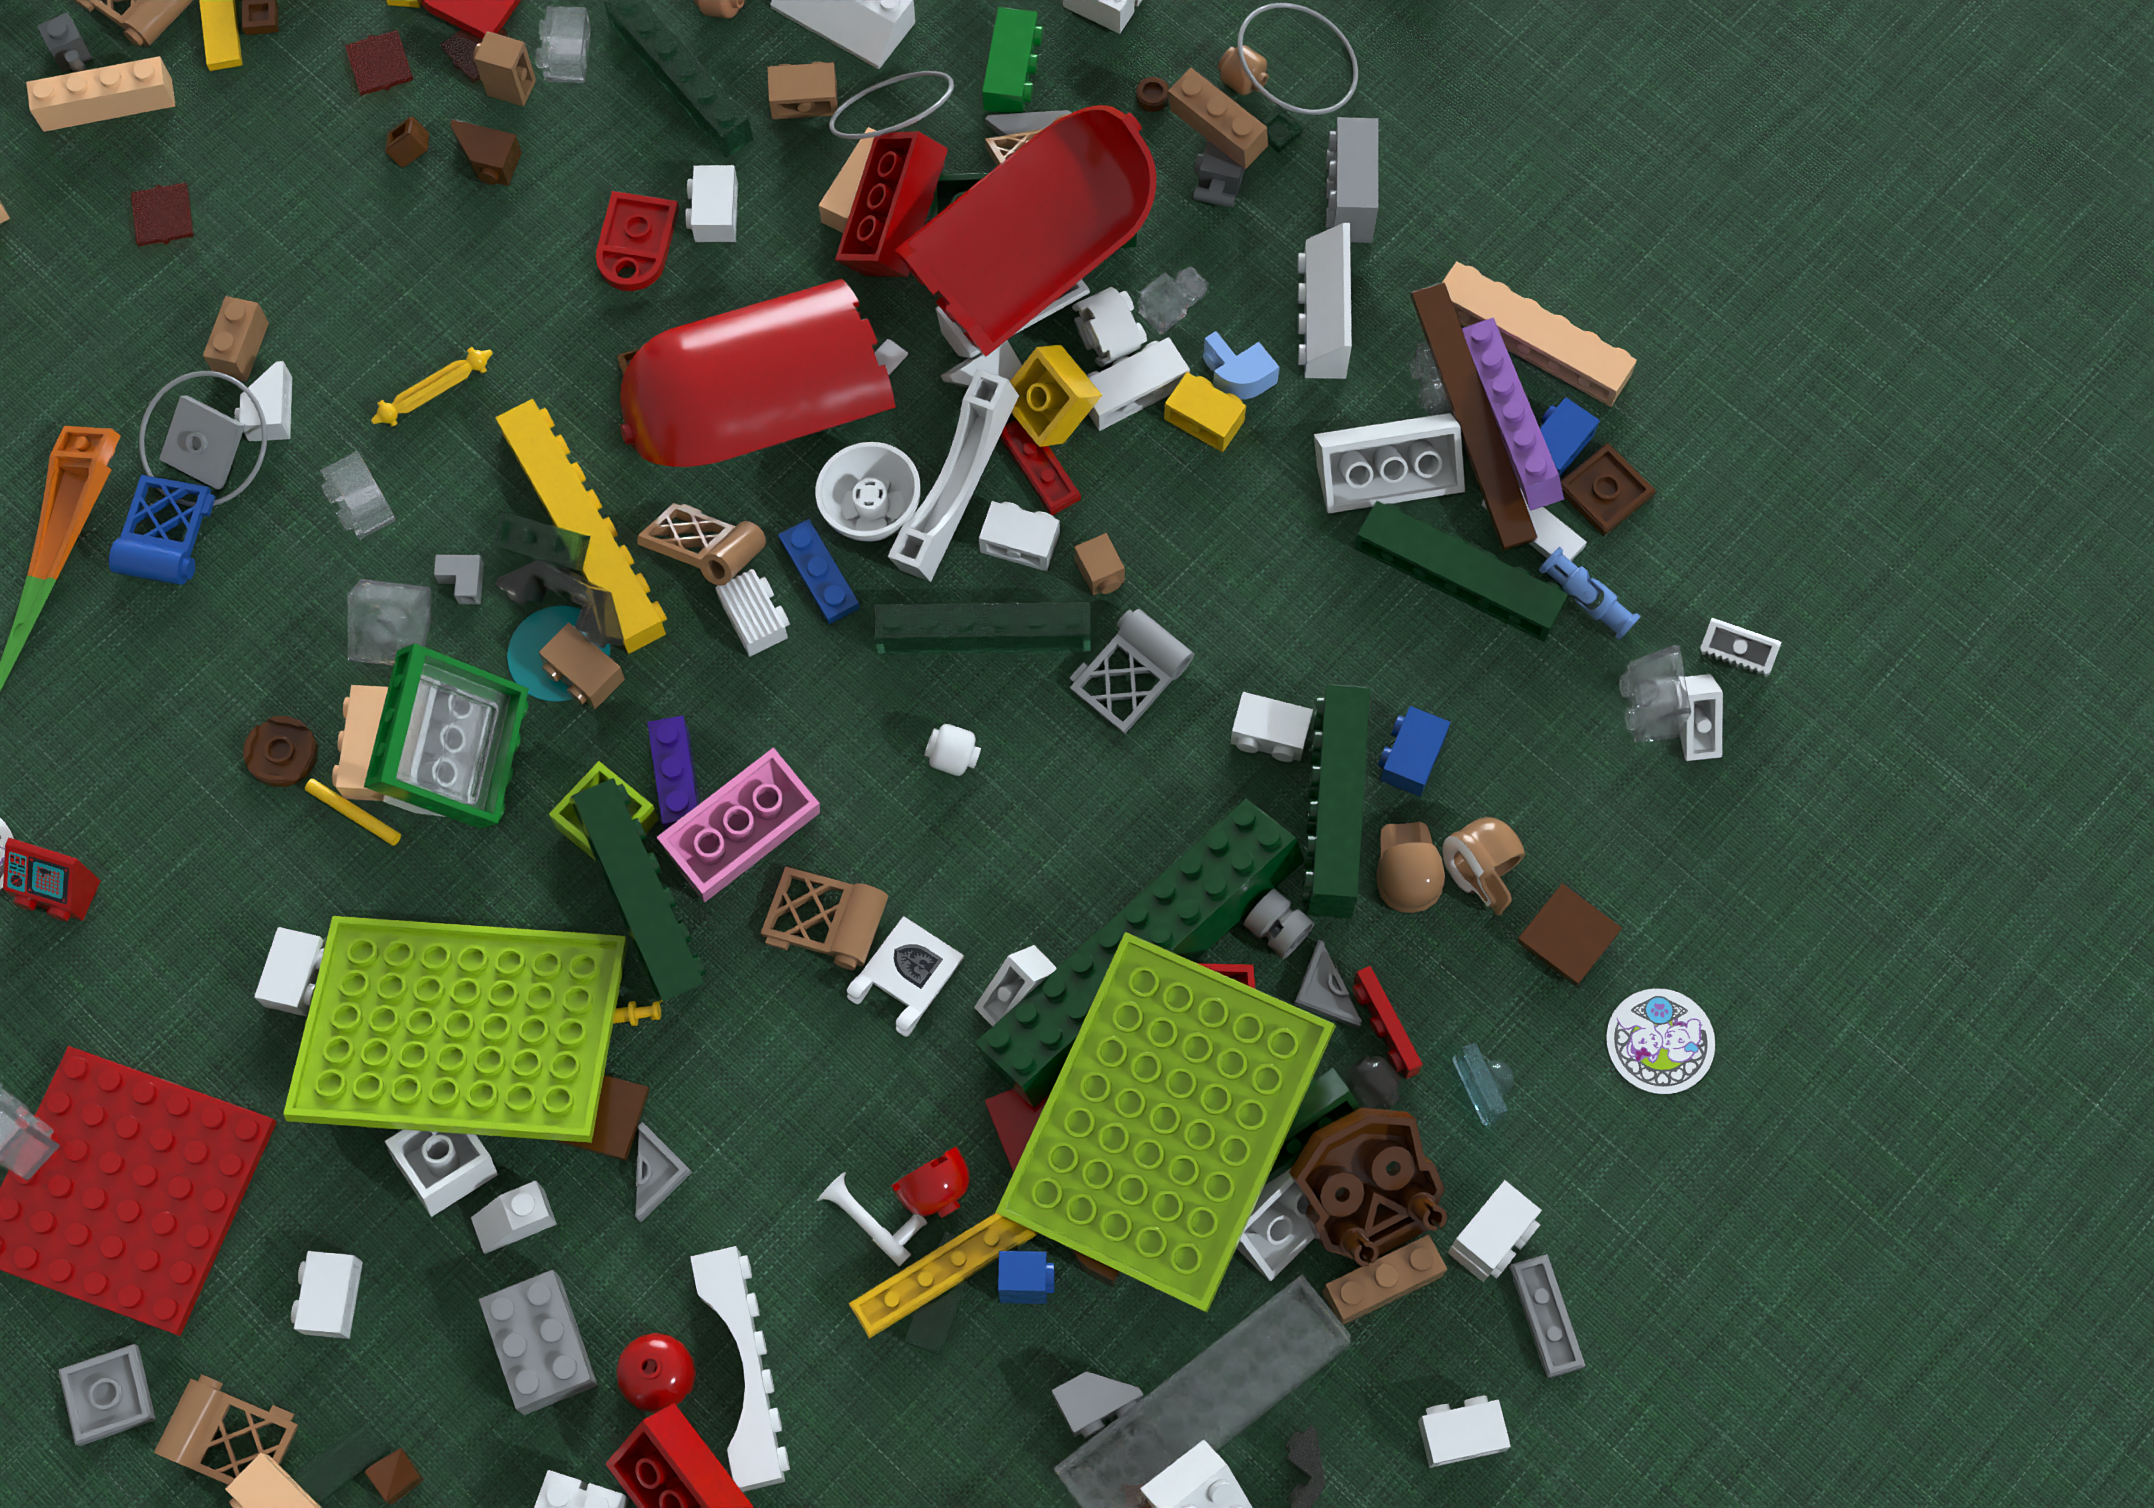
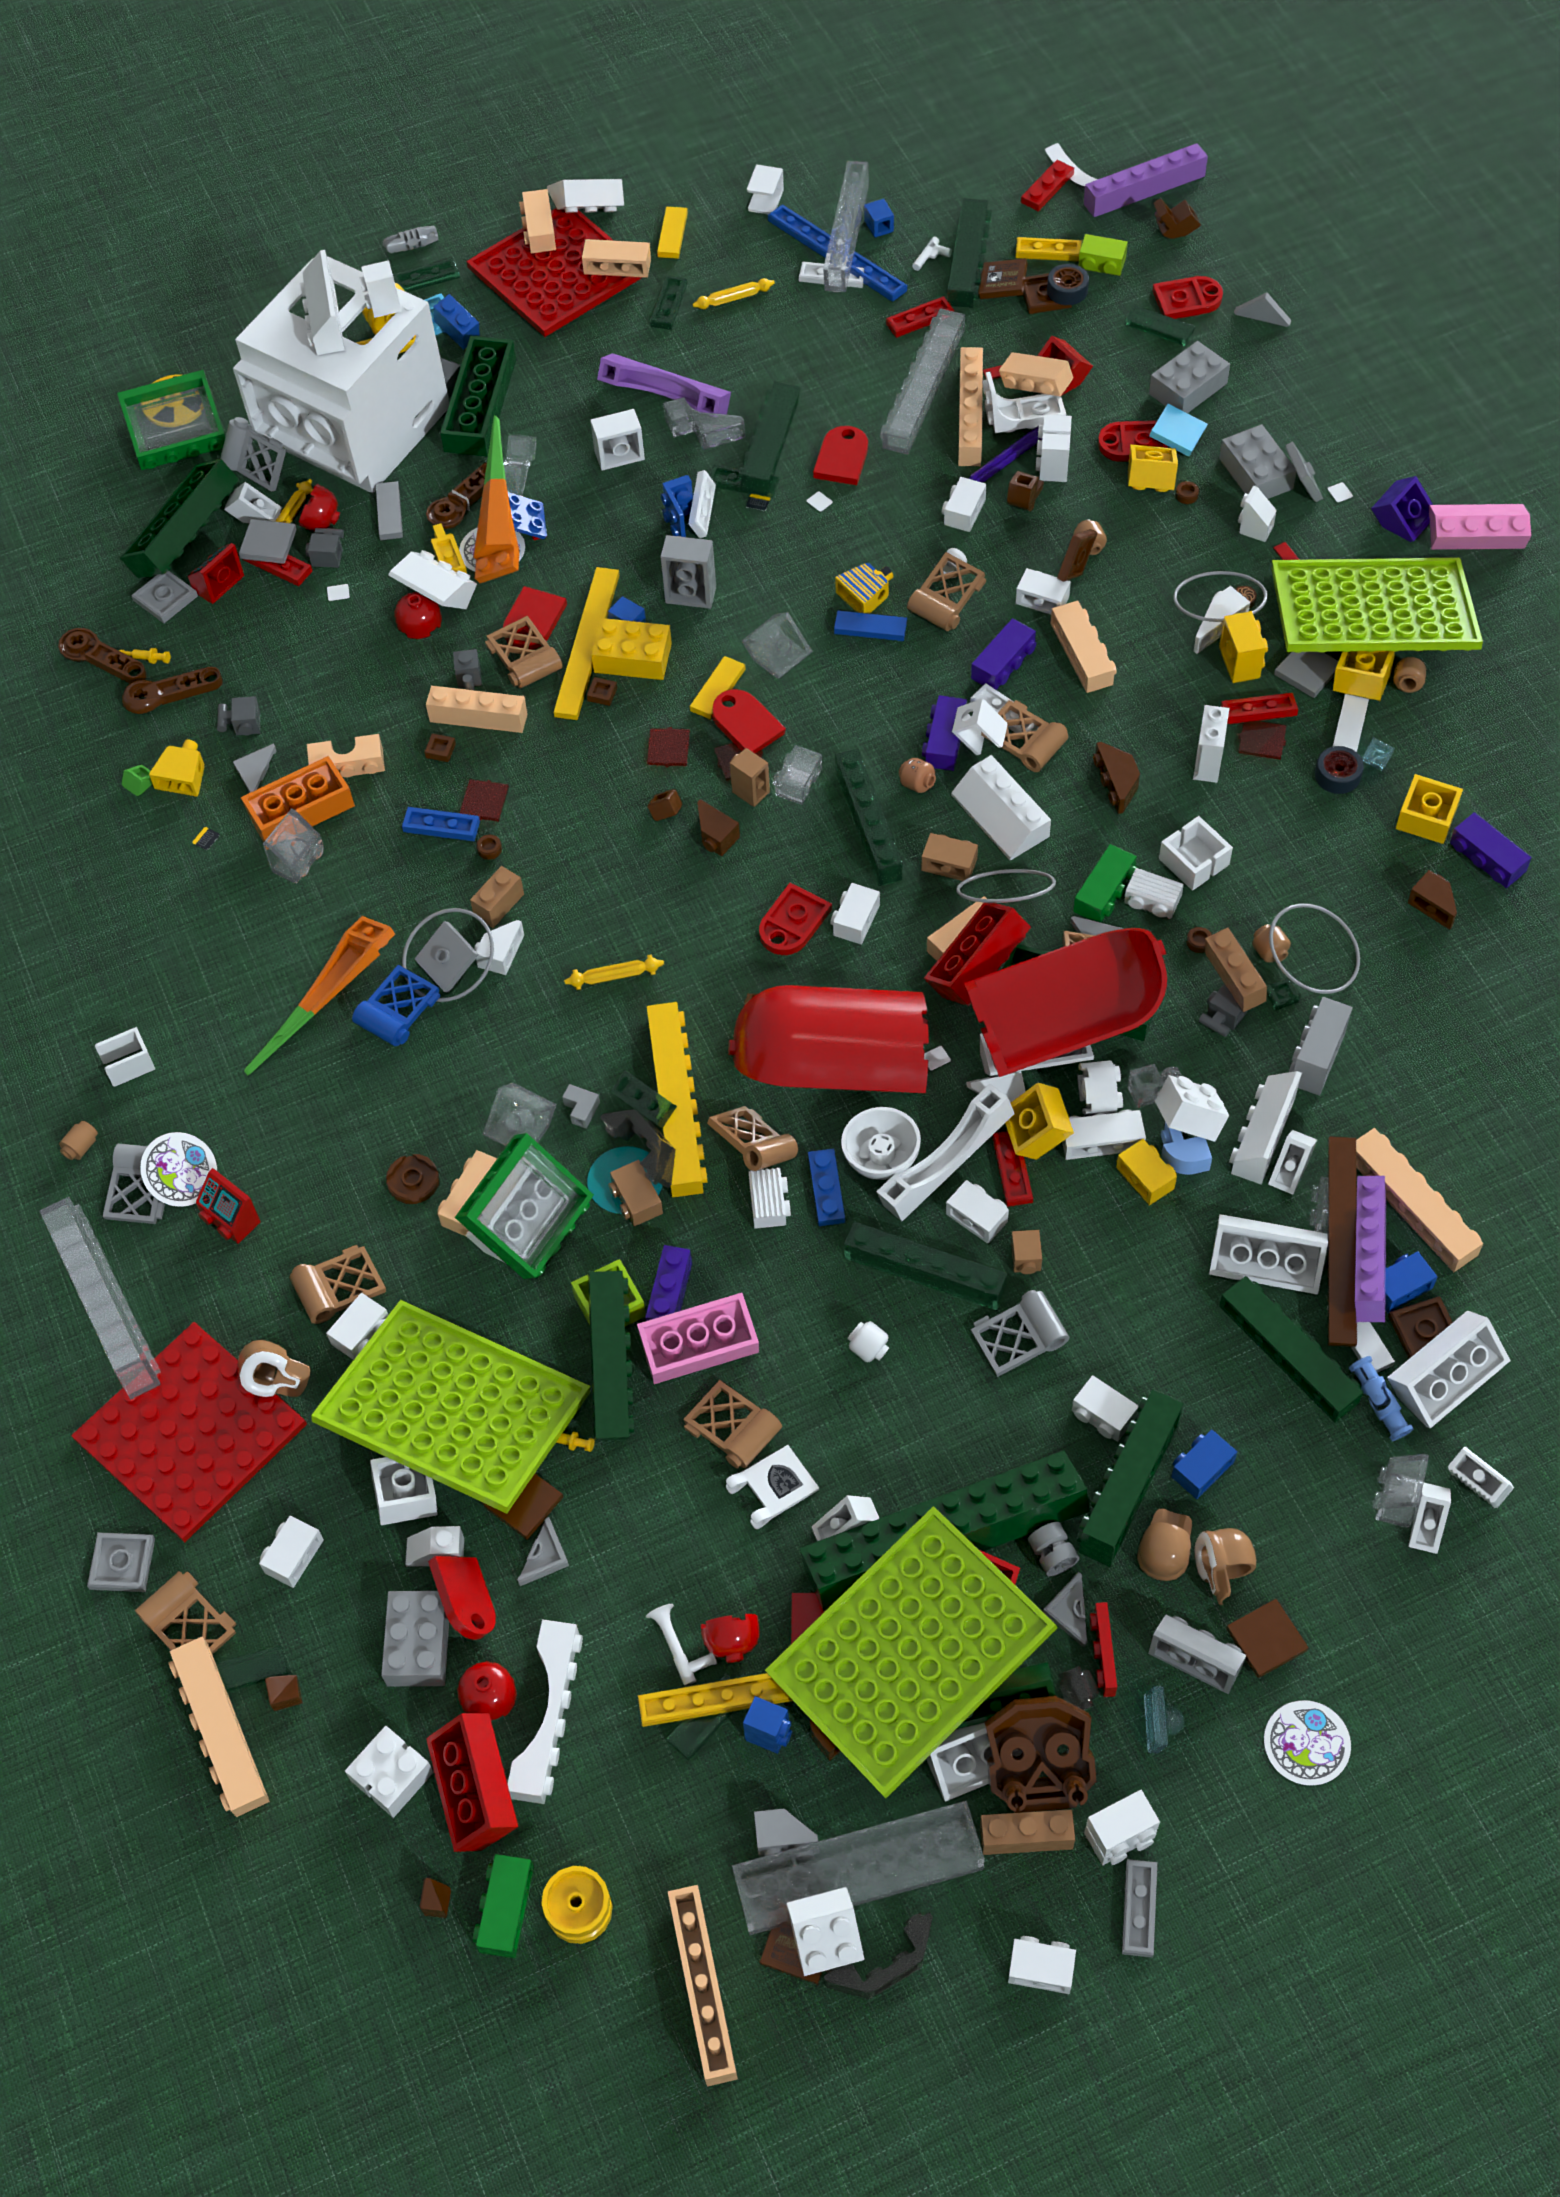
camera: 25 degrees right, 10 degrees down
(73, 162) = (440, 747): none -> reddish brown plate
(118, 265) = (441, 824): none -> blue plate
(181, 1073) = (258, 1366): none -> medium nougat piece
(196, 275) = (489, 847): none -> reddish brown tile
(213, 943) = (315, 1287): none -> medium nougat piece
(353, 812) = (443, 1236): yellow bar -> none
(357, 494) = (534, 1027): clear brick -> none
(577, 1264) = (464, 1595): none -> red tile
(1075, 53) = (1153, 893): none -> white brick
(1232, 312) = (1192, 1107): none -> white brick
(1374, 337) = (1292, 1161): none -> white slope
(1498, 985) = (1197, 1653): none -> light grey slope
(1653, 527) = (1449, 1368): none -> white slope

